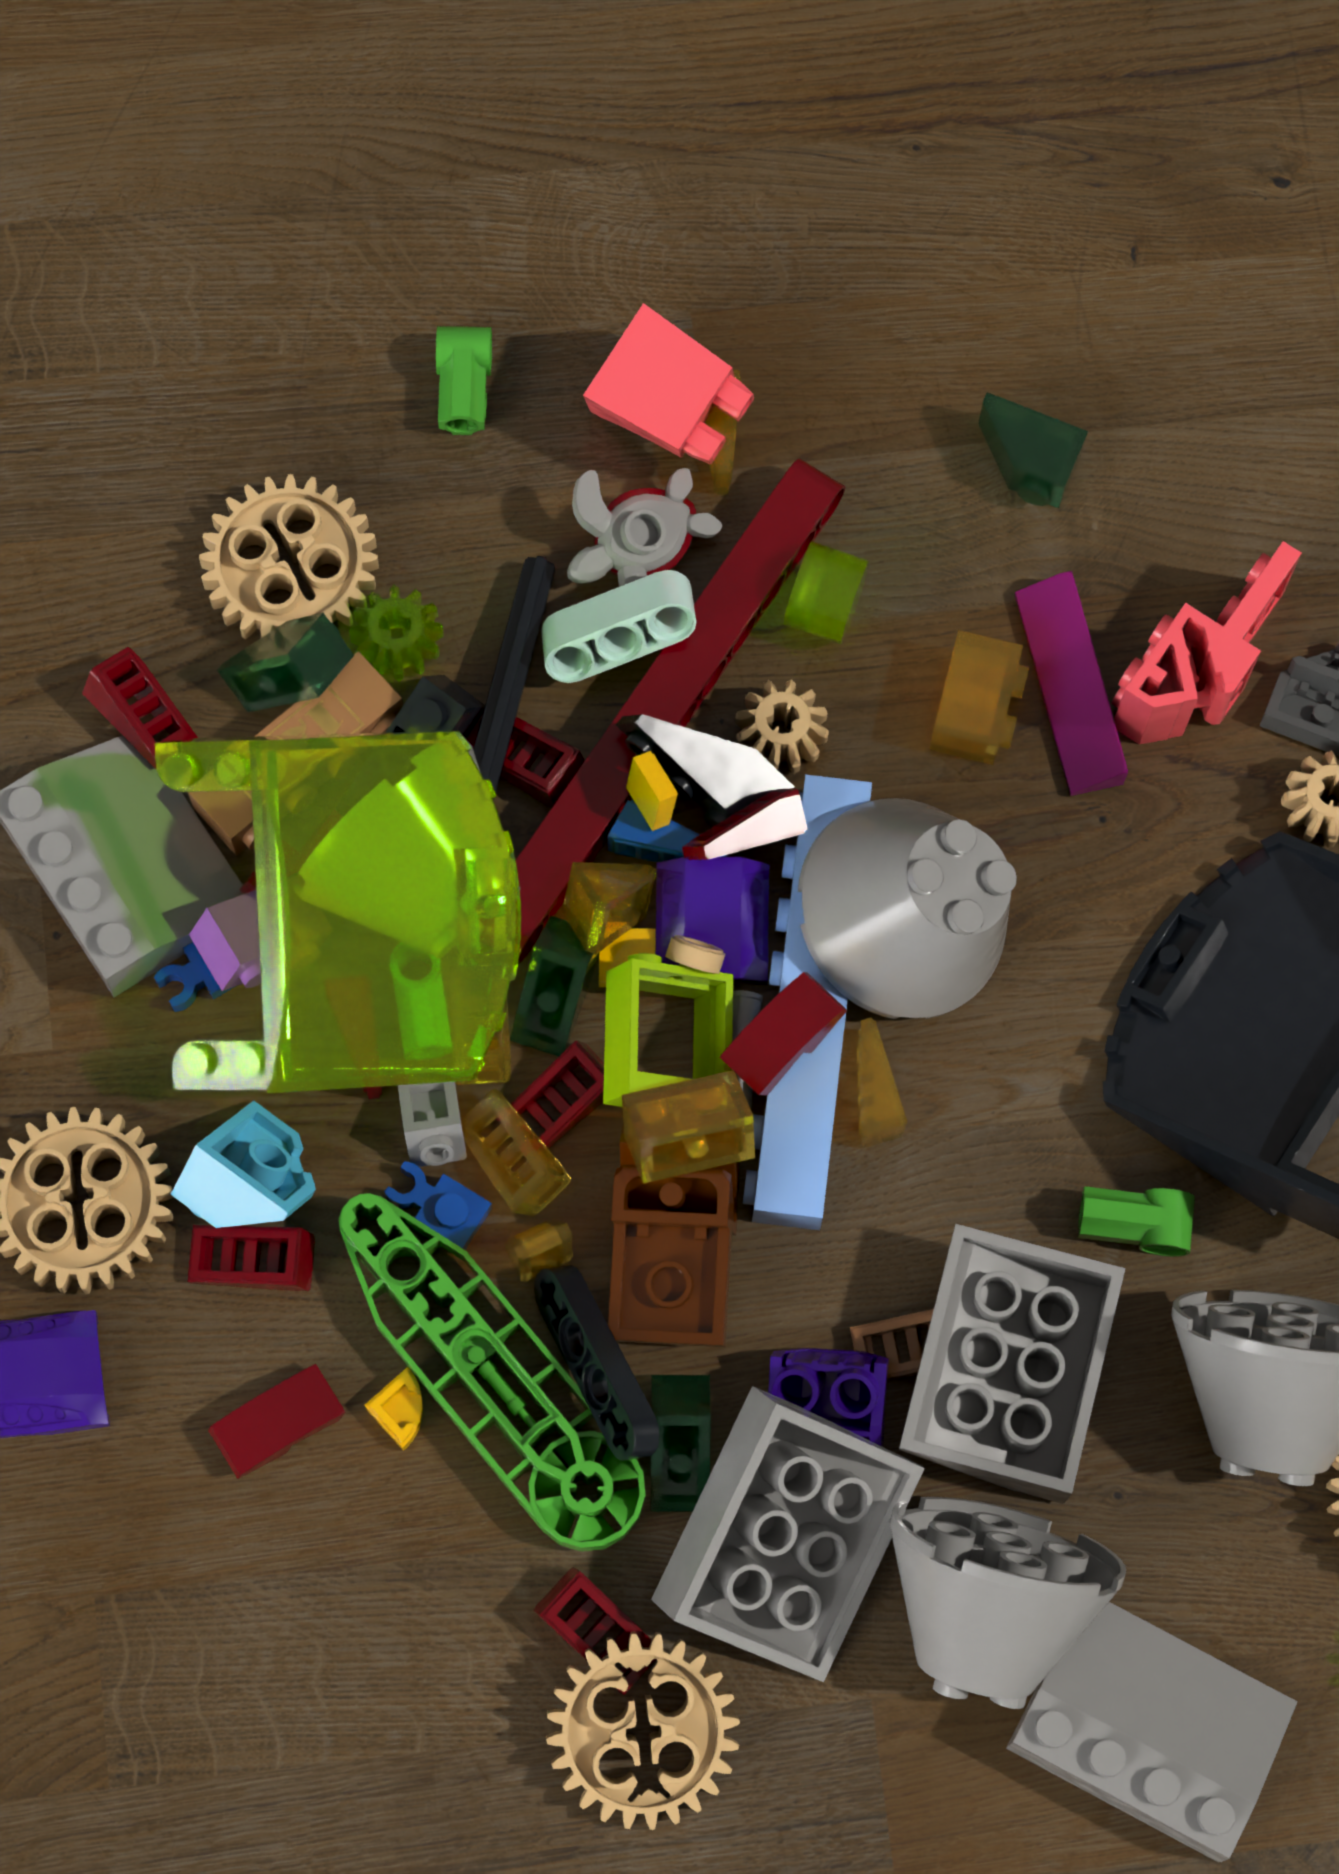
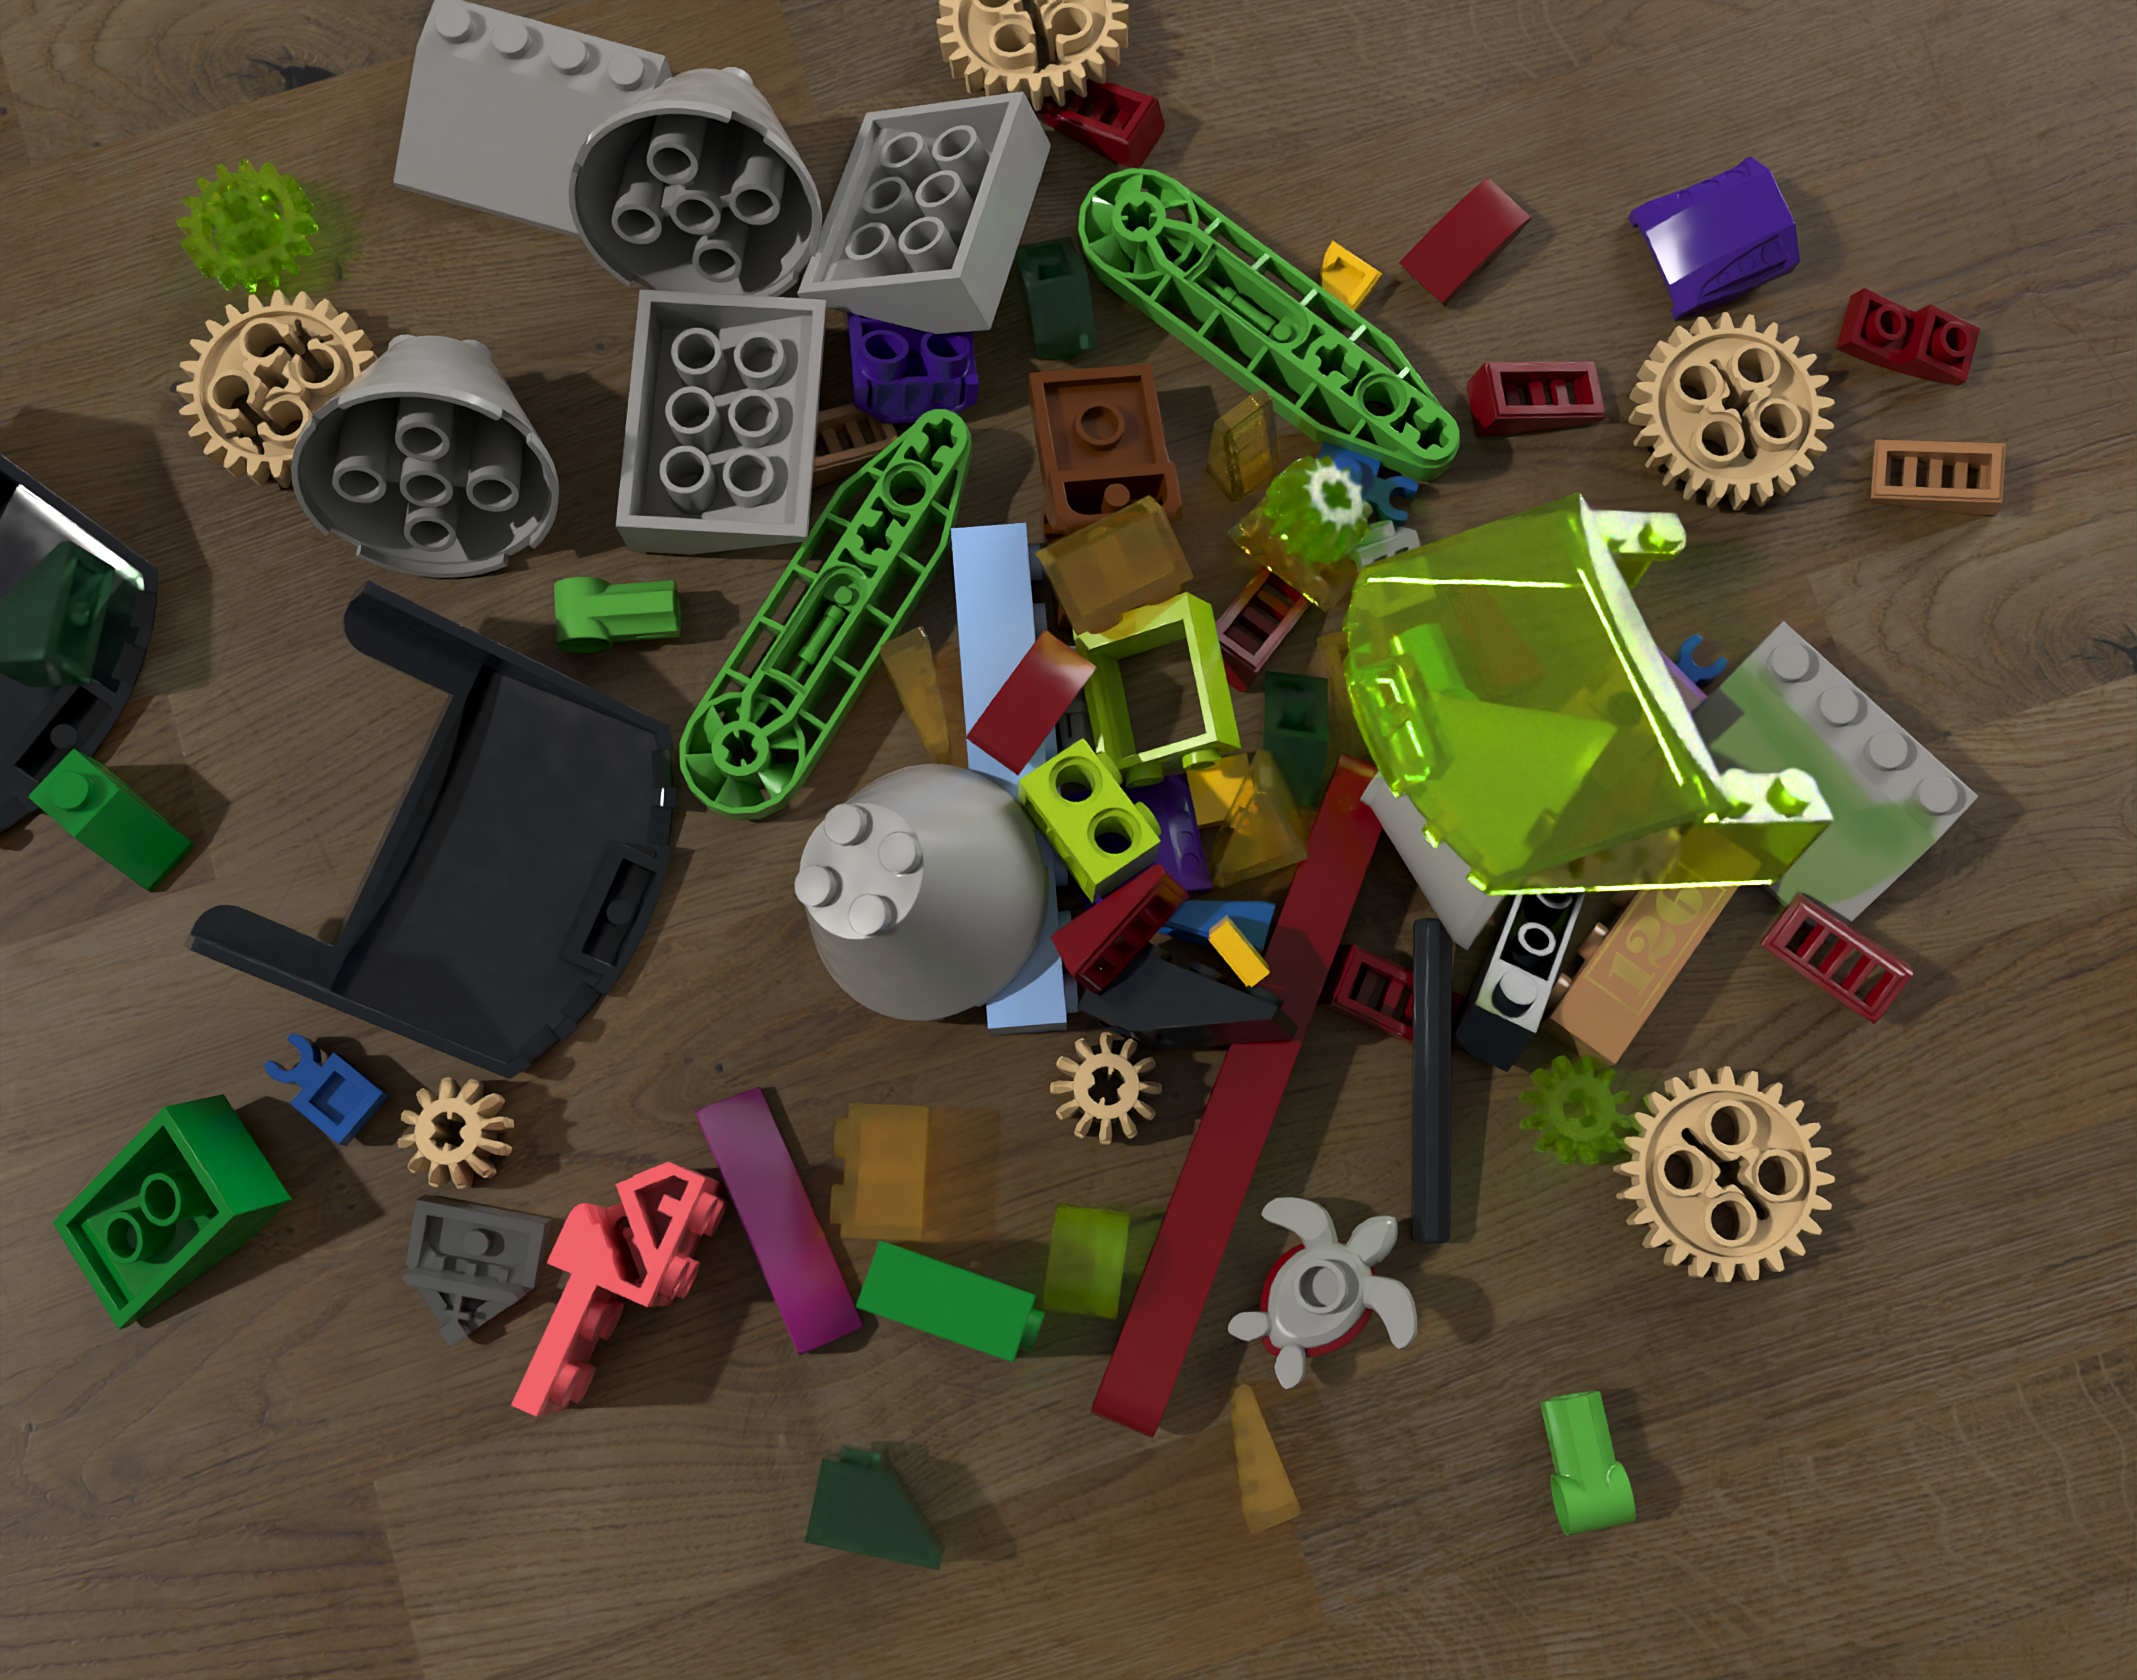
camera: 170 degrees right, 5 degrees up
(246, 1172) = (1564, 451): medium azure slope -> none
(287, 664) = (1687, 1035): clear green slope -> none
(489, 1163) = (1317, 510): none -> clear neon green gear
(596, 1362) = (1152, 332): black beam -> none
(618, 626) = (1321, 1161): light aqua beam -> none
(666, 388) = (1339, 1476): coral hips -> none
(695, 954) = (1150, 780): tan tile -> none
(766, 915) = (1074, 826): none -> lime brick
(919, 1199) = (853, 585): none -> bright green beam
(940, 576) = (950, 1302): none -> green window

